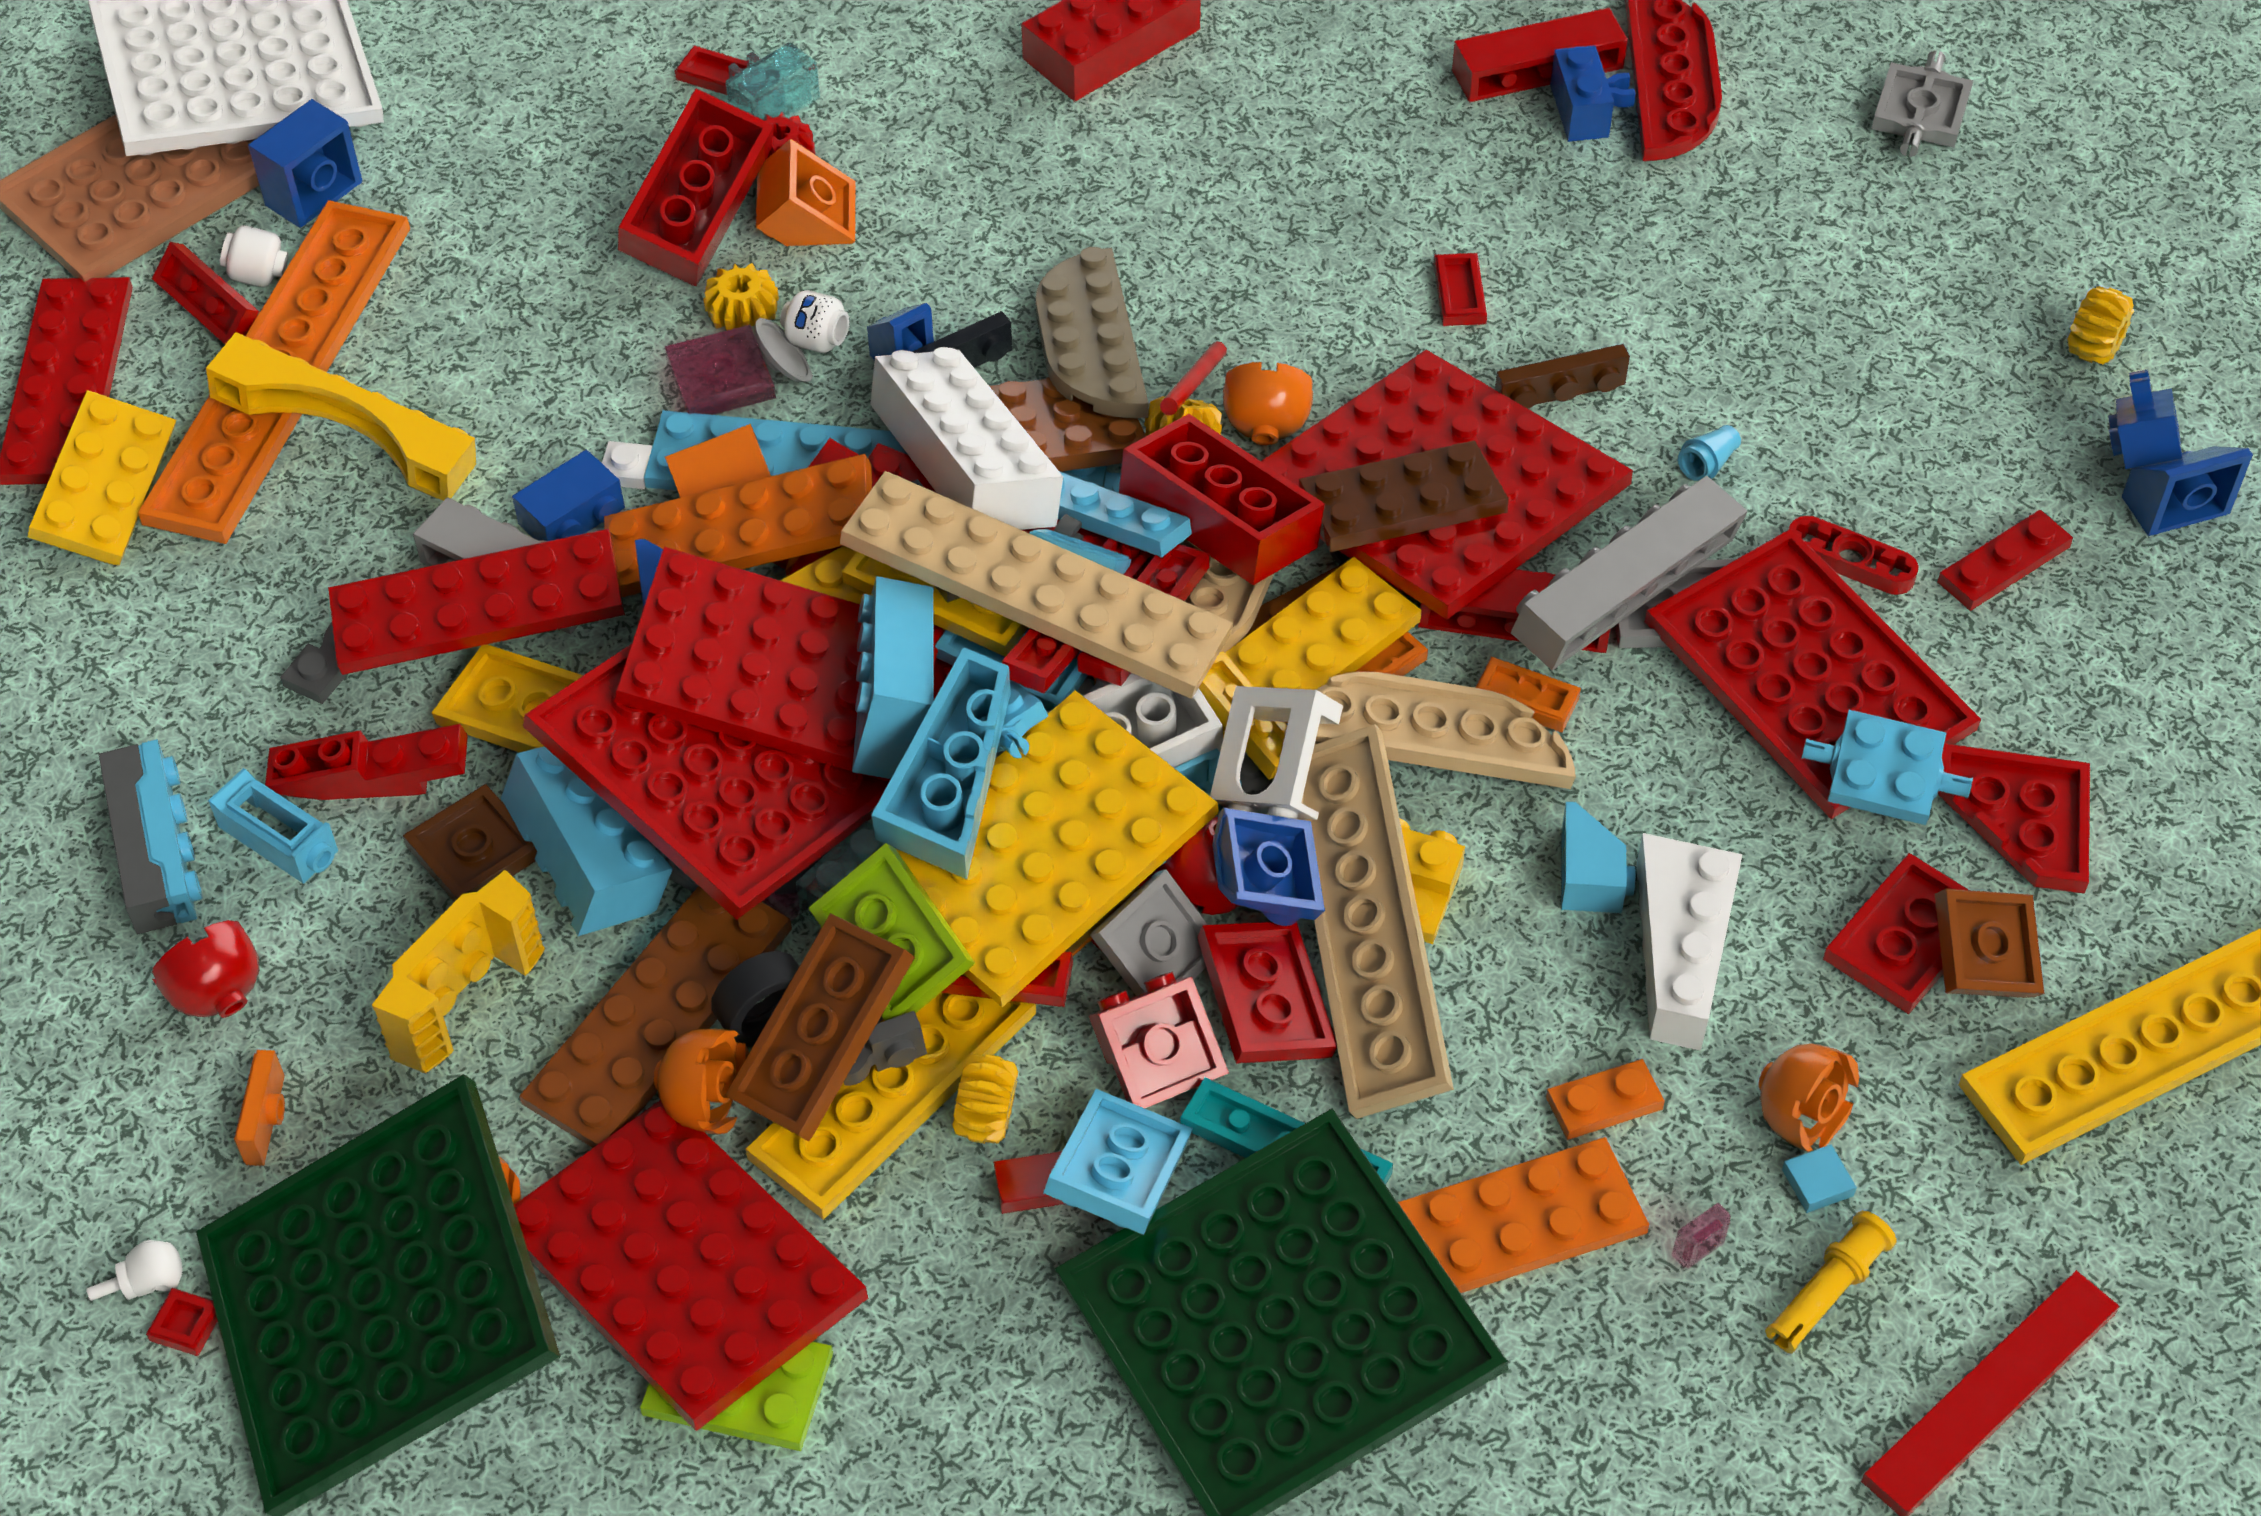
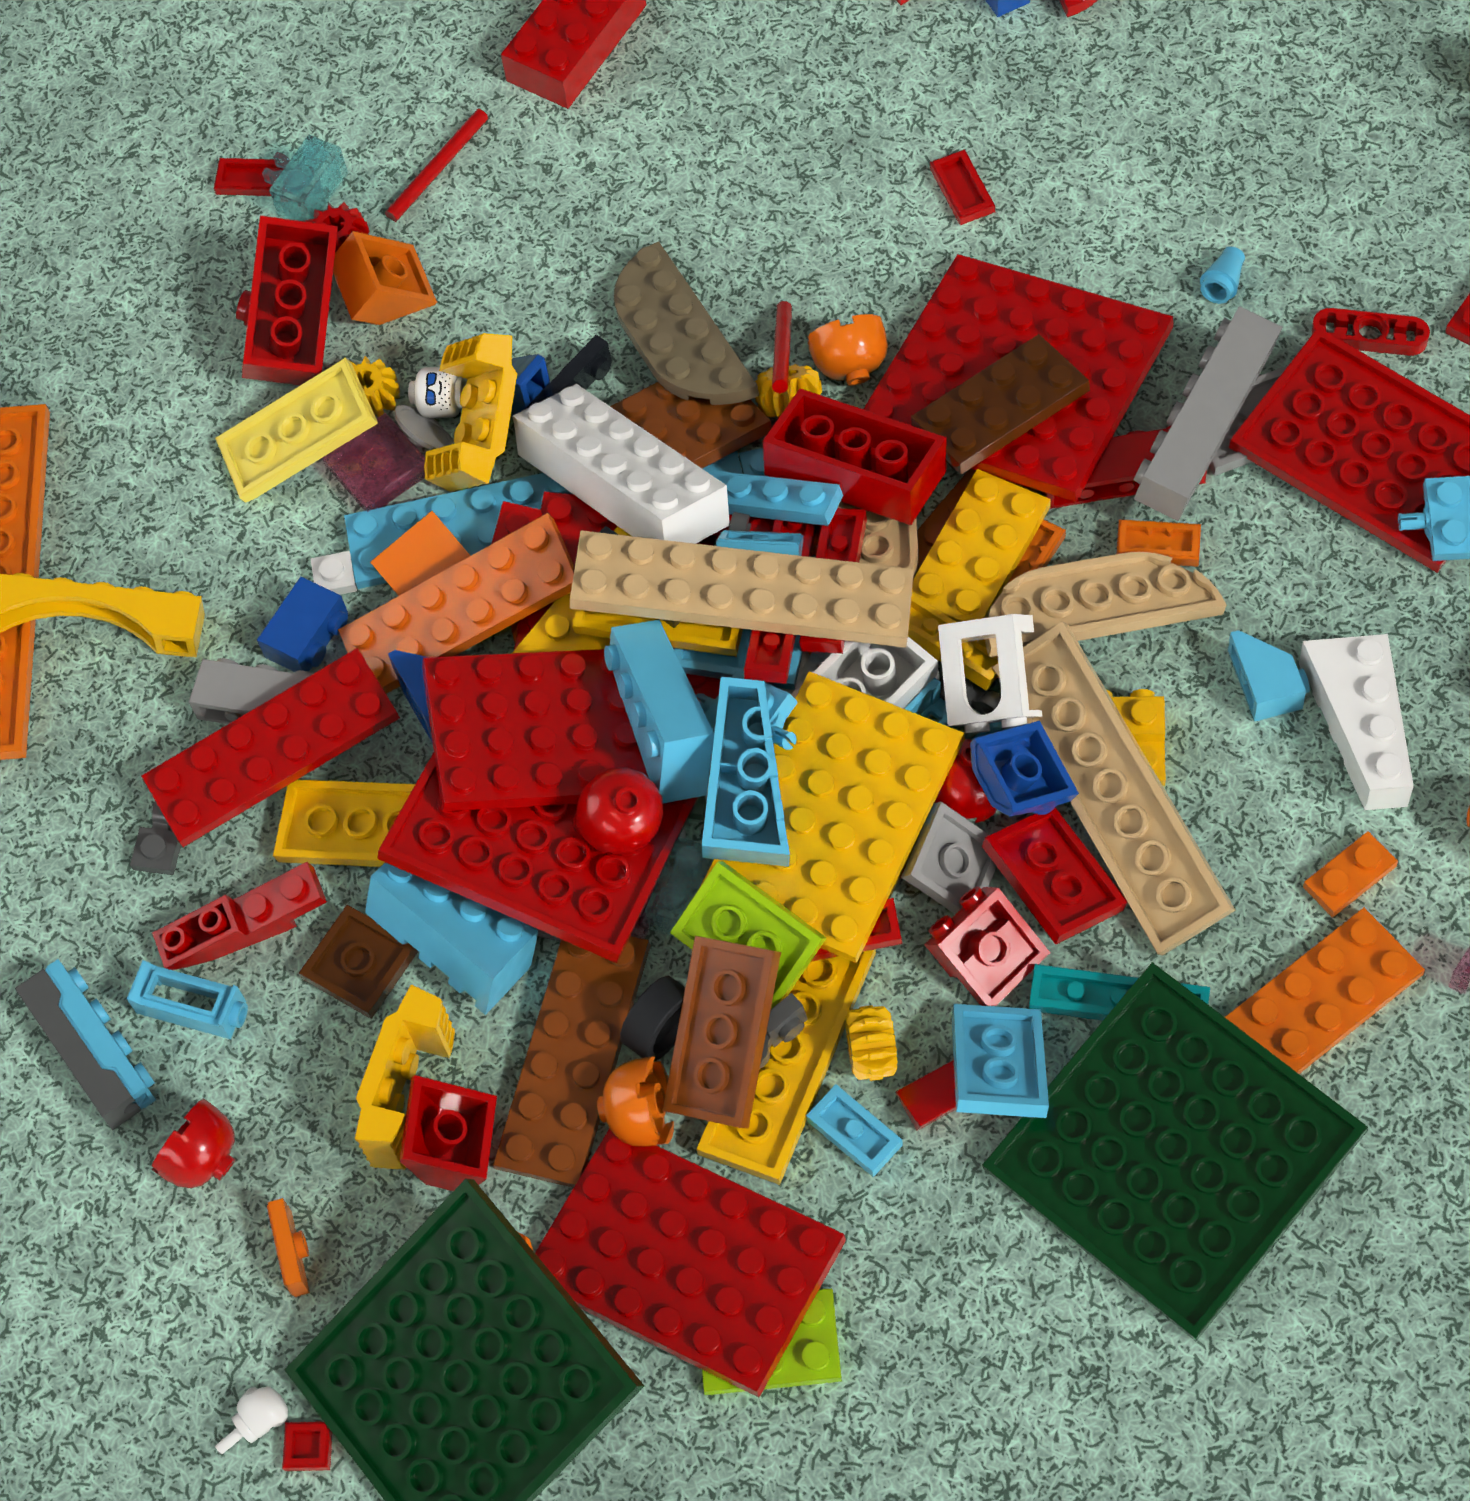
camera: 10 degrees left, 10 degrees up
(477, 1033) = (447, 1133): none -> red slope
(649, 313) = (296, 430): none -> light yellow tile
(805, 763) = (619, 811): none -> red cylinder
(866, 296) = (485, 412): none -> yellow plate
(913, 114) = (436, 165): none -> red bar
(929, 1187) = (854, 1130): none -> medium azure plate
(1565, 376) = (1082, 244): reddish brown plate -> none

